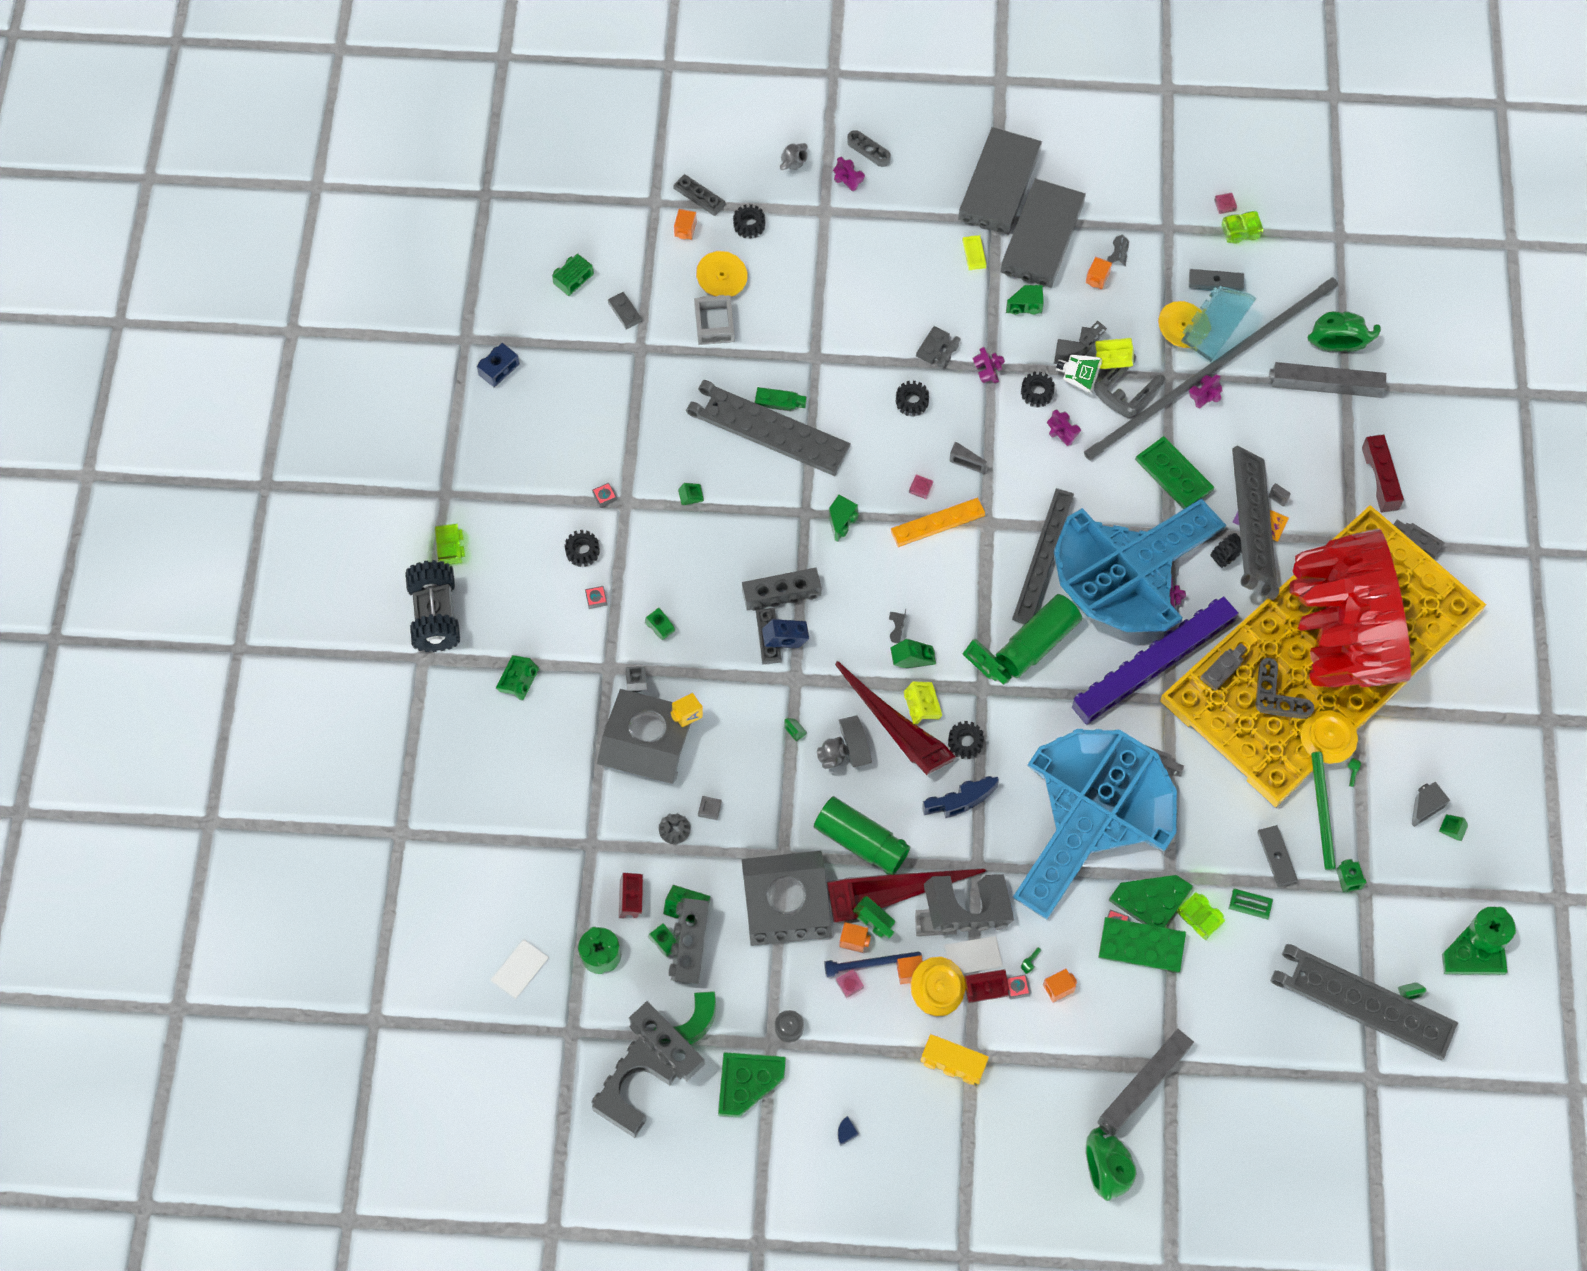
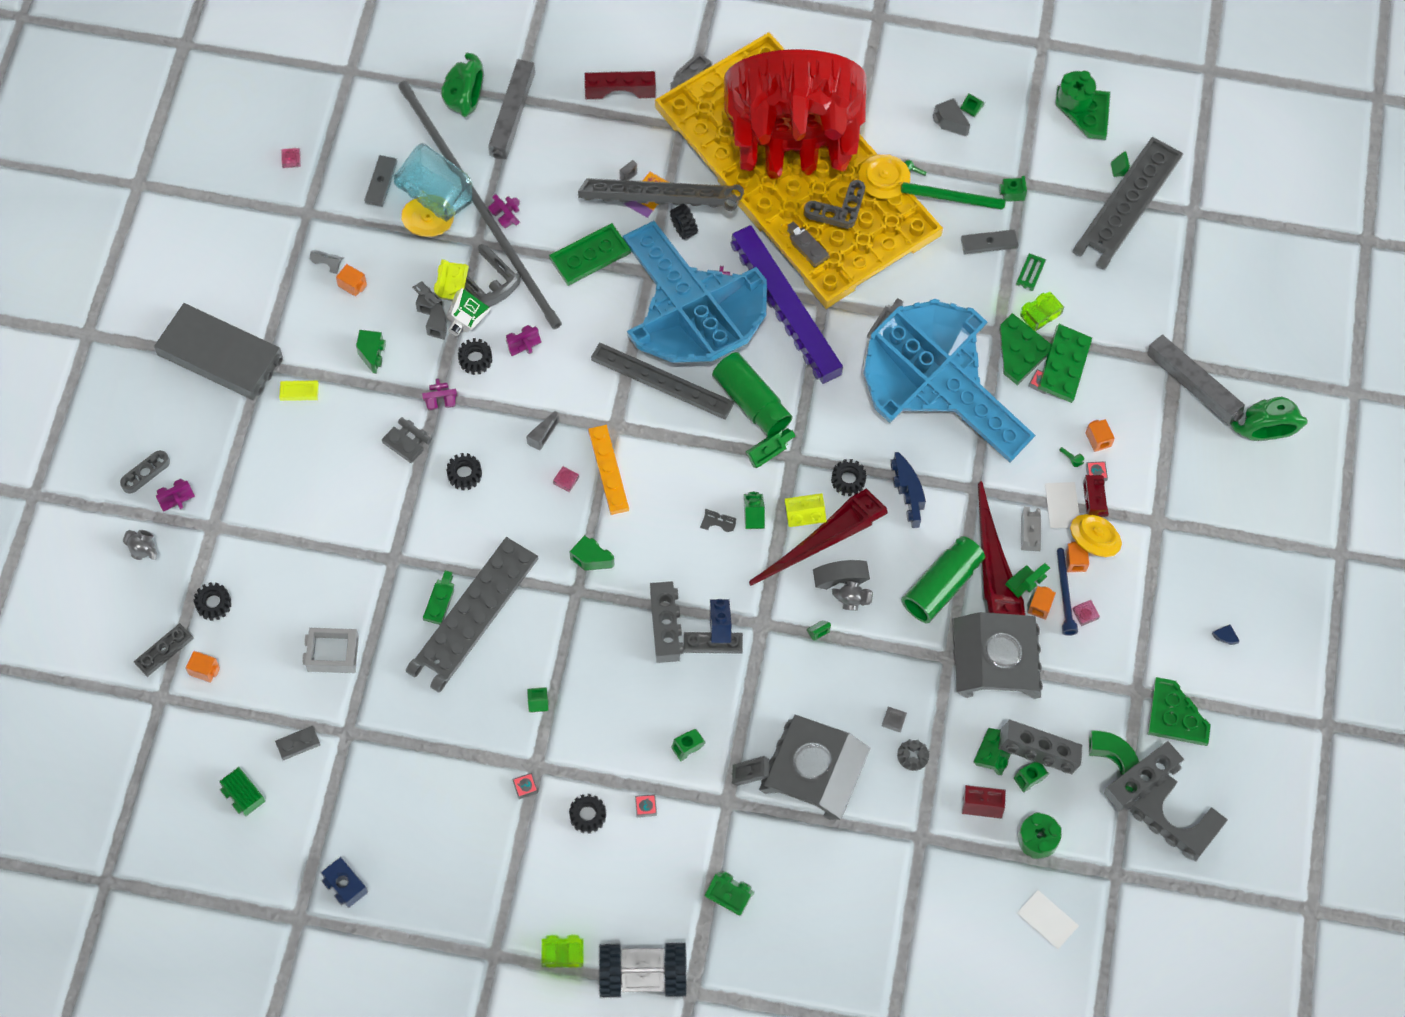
camera: 85 degrees left, 0 degrees up
(686, 710) = (802, 718): yellow brick -> none
(721, 274) = (276, 635): yellow piece -> none
(789, 1026) = (1125, 671): dark grey wheel -> none
(949, 915) = (1028, 477): dark grey arch -> none
(954, 1059) = (1165, 533): yellow brick -> none
(1043, 233) = (292, 322): dark grey brick -> none
(1241, 227) = (325, 146): clear neon green brick -> none

